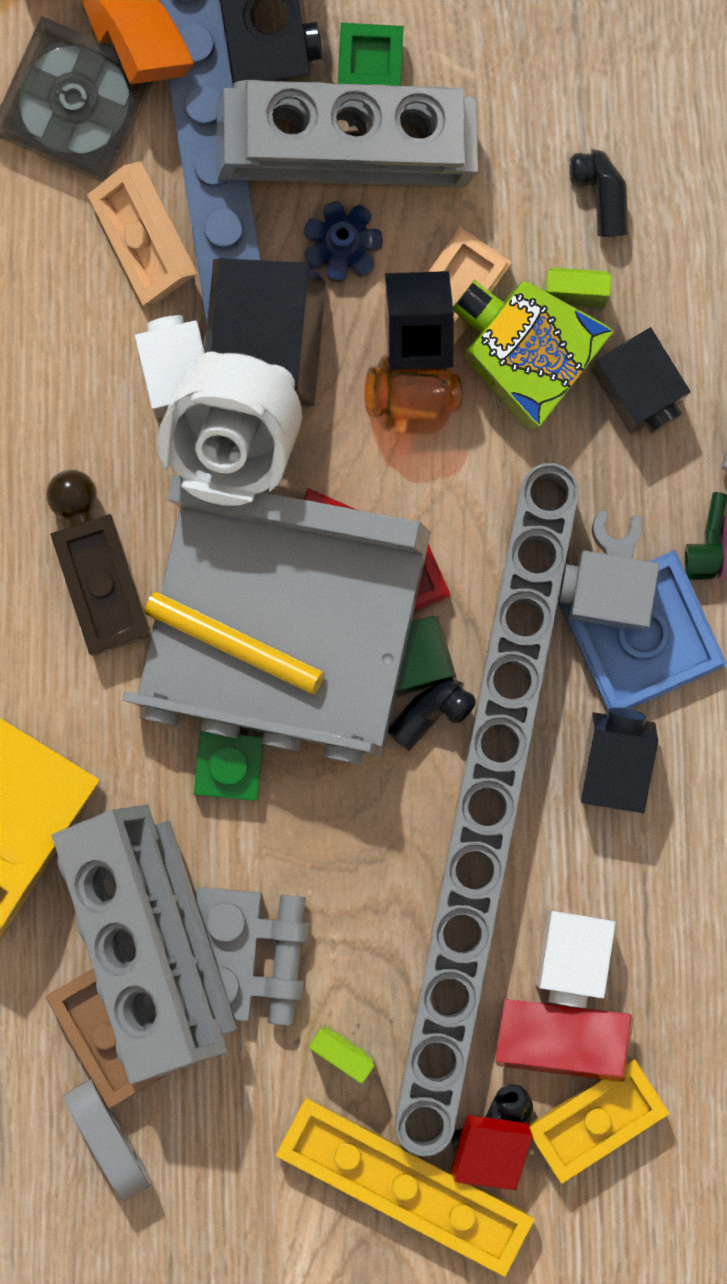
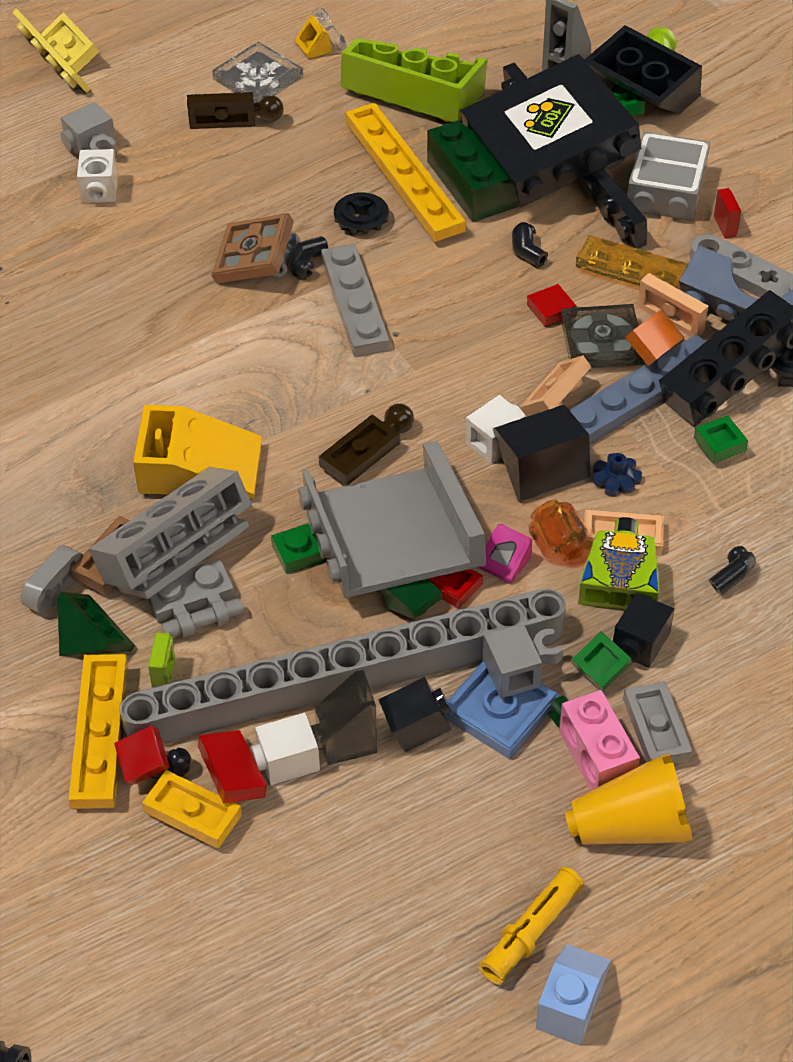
camera: 70 degrees right, 35 degrees down
(219, 1123) = (87, 628): none -> dark green slope
(230, 427) = (477, 435): white brick -> none
(234, 643) = (365, 511): yellow bar -> none
(383, 154) = (673, 436): light grey brick -> none
(405, 484) = (507, 553): none -> dark pink slope
(419, 320) = (596, 500): black brick -> none
(425, 708) = (383, 618): black arm -> none
(579, 286) = (672, 577): lime tile -> none
(588, 864) = (347, 721): none -> clear smoke slope
(659, 465) = (601, 661): none -> green plate

